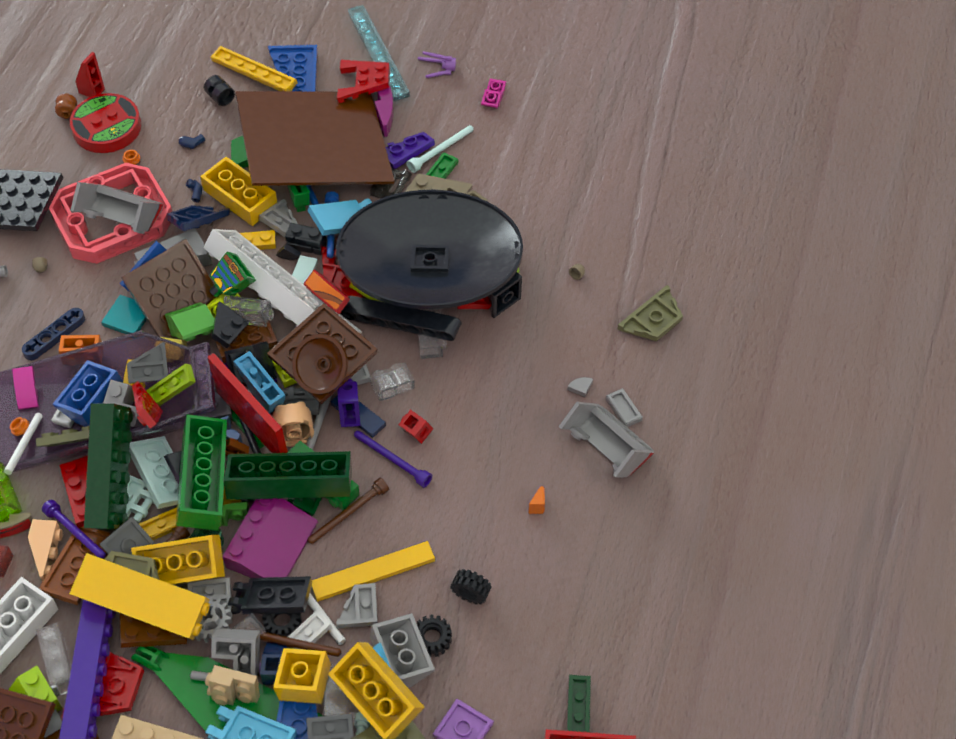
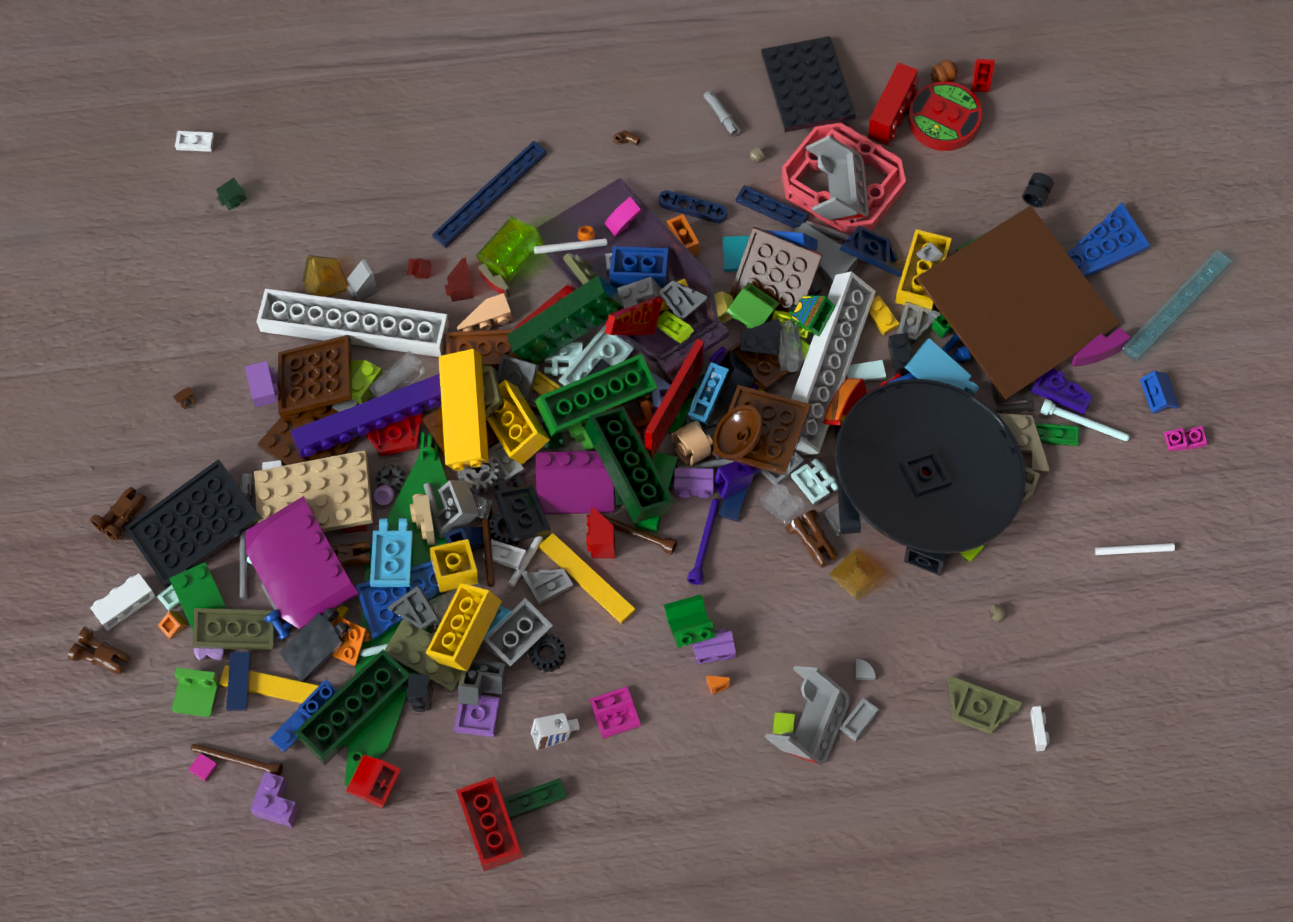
camera: 70 degrees right, 10 degrees up
(52, 510) = (523, 302): dark purple piece -> none
(69, 146) = (893, 104): none -> red brick
(98, 276) = (771, 207): none -> dark blue tile
(131, 157) = (916, 156): orange plate -> none
(162, 719) = (397, 472): none -> dark grey gear
(170, 232) = (828, 231): none -> light grey bar
(176, 722) = (384, 495): none -> lavender tile
(191, 143) = (963, 200): dark blue arm -> none
(196, 188) = (907, 236): dark blue arm -> none
(230, 174) = (930, 253): none -> light grey tile
(253, 69) = (1083, 206): yellow tile -> none
(288, 252) = (879, 349): black tile -> none
(331, 436) = (694, 482): none -> medium lavender brick
(341, 535) = (600, 536): none -> red slope
(369, 78) = (1129, 315): red wing -> none
(388, 352) = (810, 483): none -> light aqua plate
(415, 426) = (743, 546): red brick -> none
(436, 698) = (481, 677): none -> dark grey brick
(443, 371) = (816, 542): none -> reddish brown piece
(444, 93) = (1159, 391): none -> blue panel
(448, 63) = (1198, 377): medium lavender plant -> none
(468, 499) = (689, 621): none -> green panel
(470, 586) = (602, 662): black tyre -> none
(488, 355) = (856, 574): none -> clear yellow slope
(501, 490) = (716, 648): none -> medium lavender brick
(518, 656) = (552, 730): none -> white torso
(522, 601) = (615, 712): none -> dark pink slope
(568, 163) = (1134, 549): none -> white bar
(600, 466) = (783, 723): none -> lime tile
(694, 283) = (1038, 721): none -> white plate

